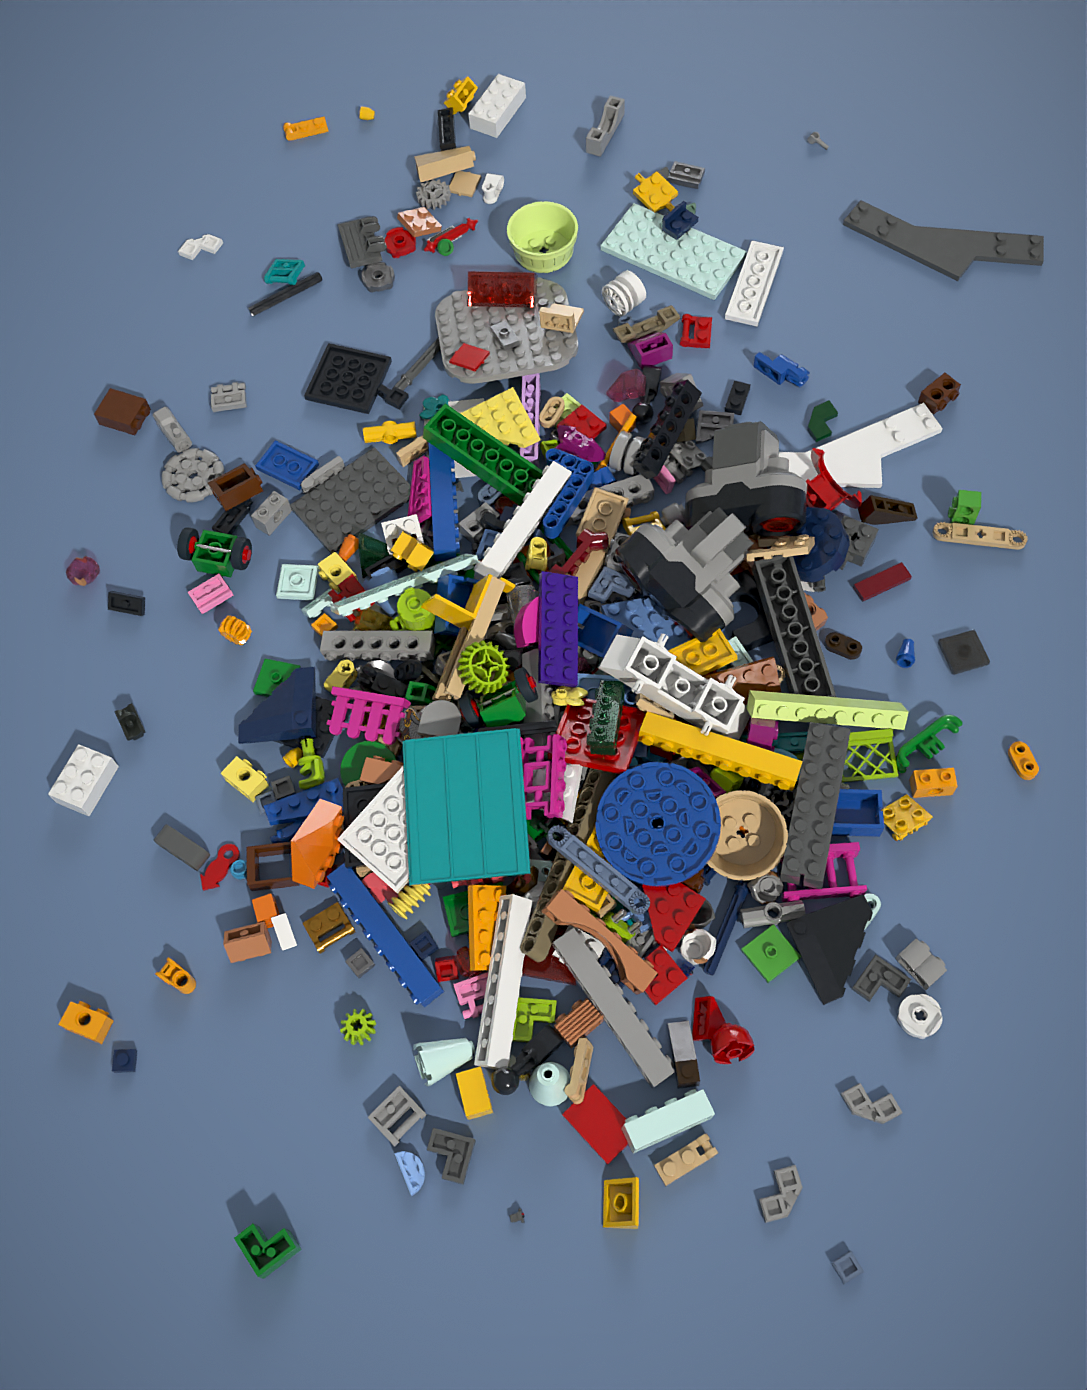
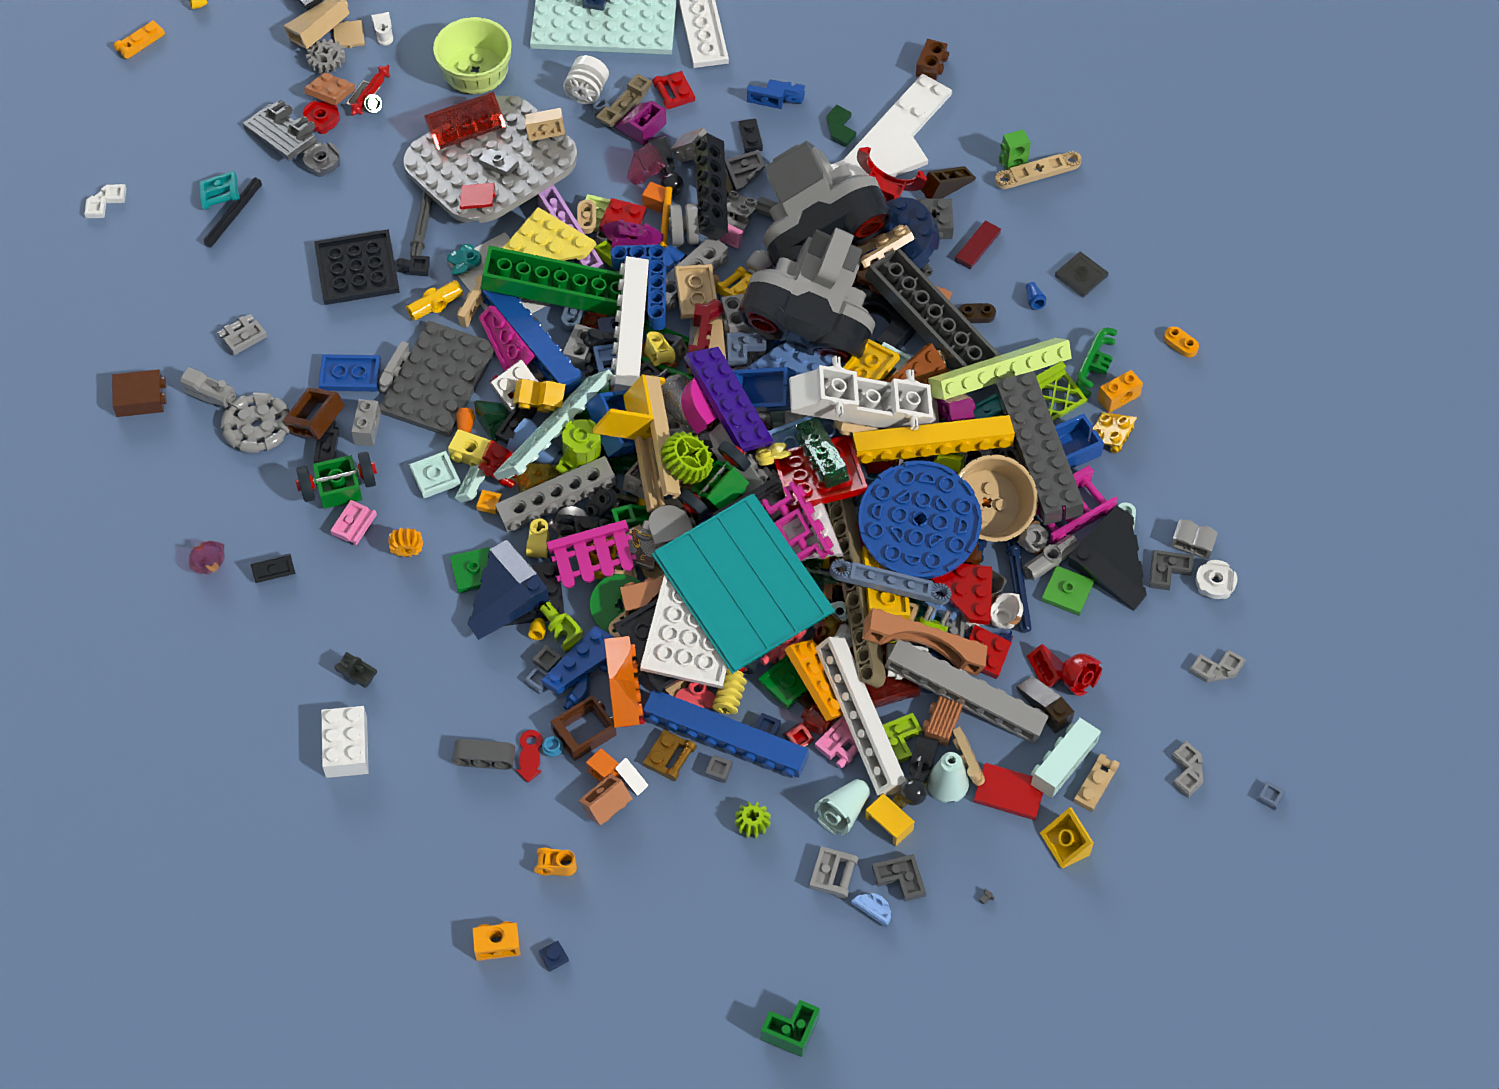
camera: 35 degrees left, 5 degrees down
(237, 771) = (512, 675): light yellow brick -> none

